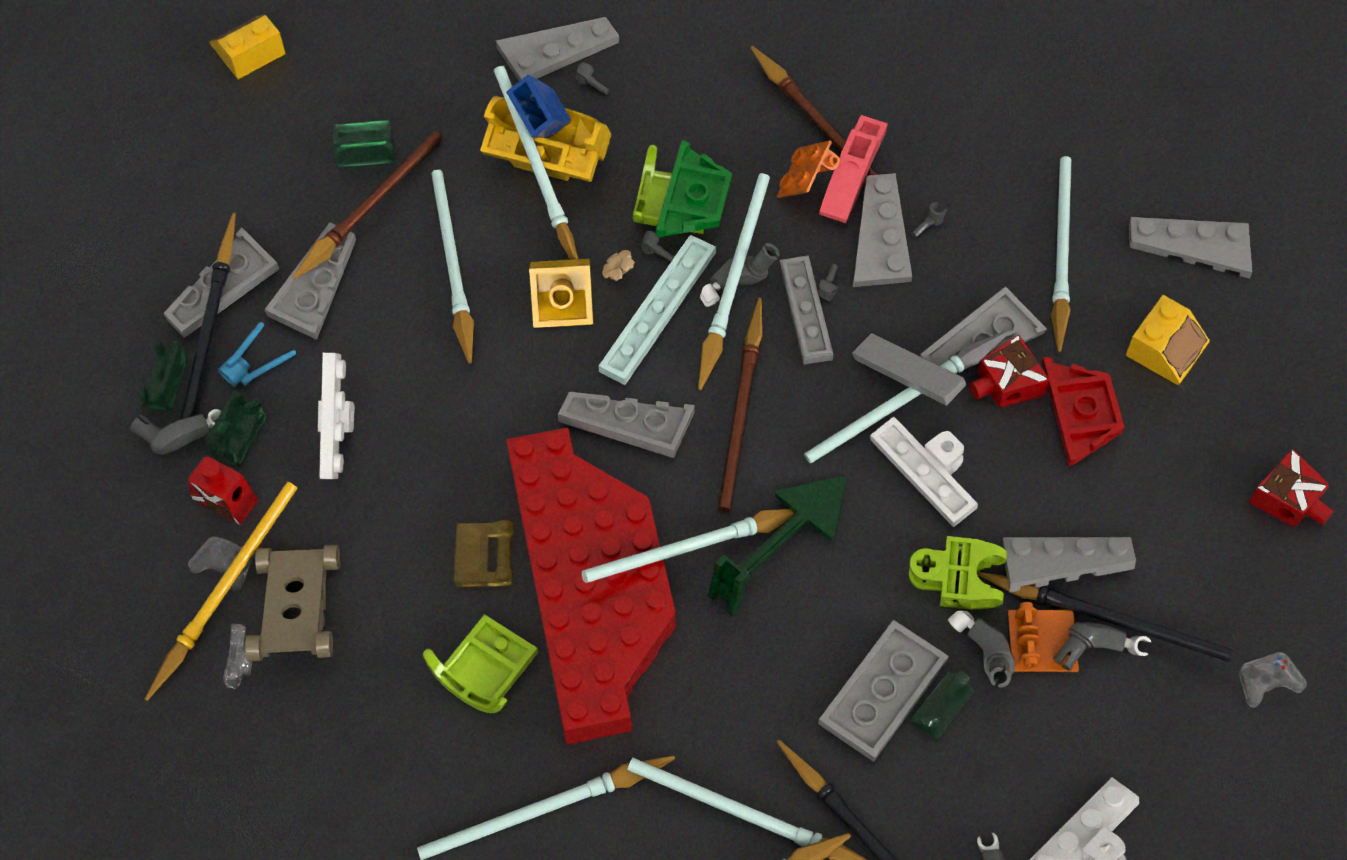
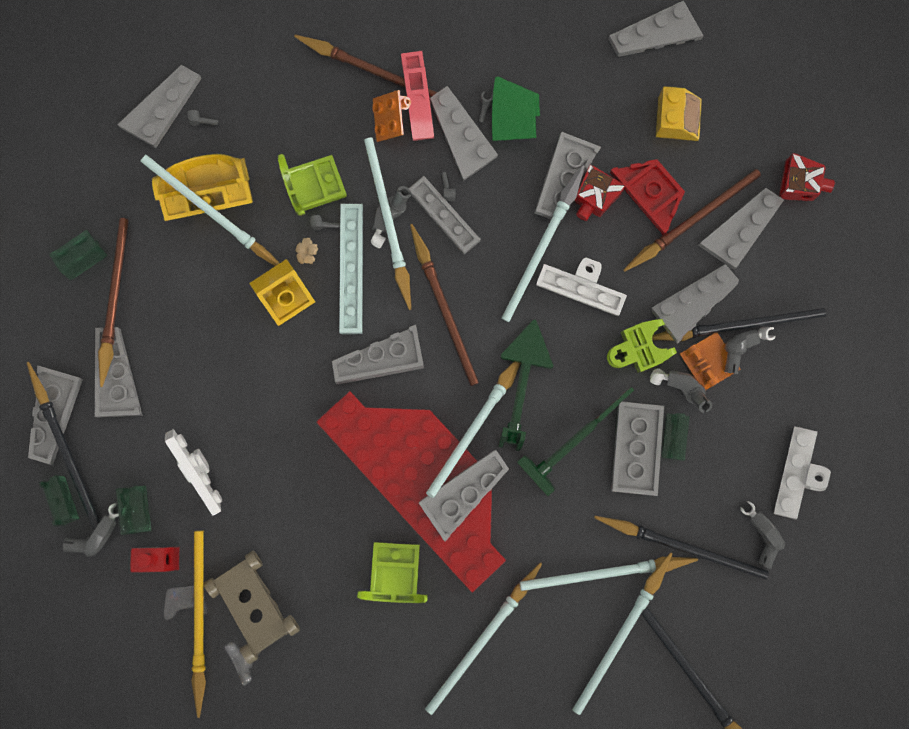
camera: 35 degrees left, 20 degrees up
(236, 367) = (104, 468): dark azure plant -> none
(463, 322) = (231, 349): light aqua piece -> none
(473, 554) = (339, 503): clear yellow plate -> none
(542, 111) = (188, 172): blue torso -> none
(627, 603) = (463, 493): none -> light grey wing
(694, 194) = (327, 174): green wing -> none
(860, 615) = (540, 471): none -> dark green piece
(909, 369) = (536, 226): light grey tile -> none
(959, 239) = (513, 111): none -> green slope
(1061, 298) = (602, 128): light aqua piece -> none
(1072, 471) = (659, 244): none -> copper piece
(1176, 511) = (738, 233): none -> light grey wing
(1268, 673) = (848, 309): clear piece -> none

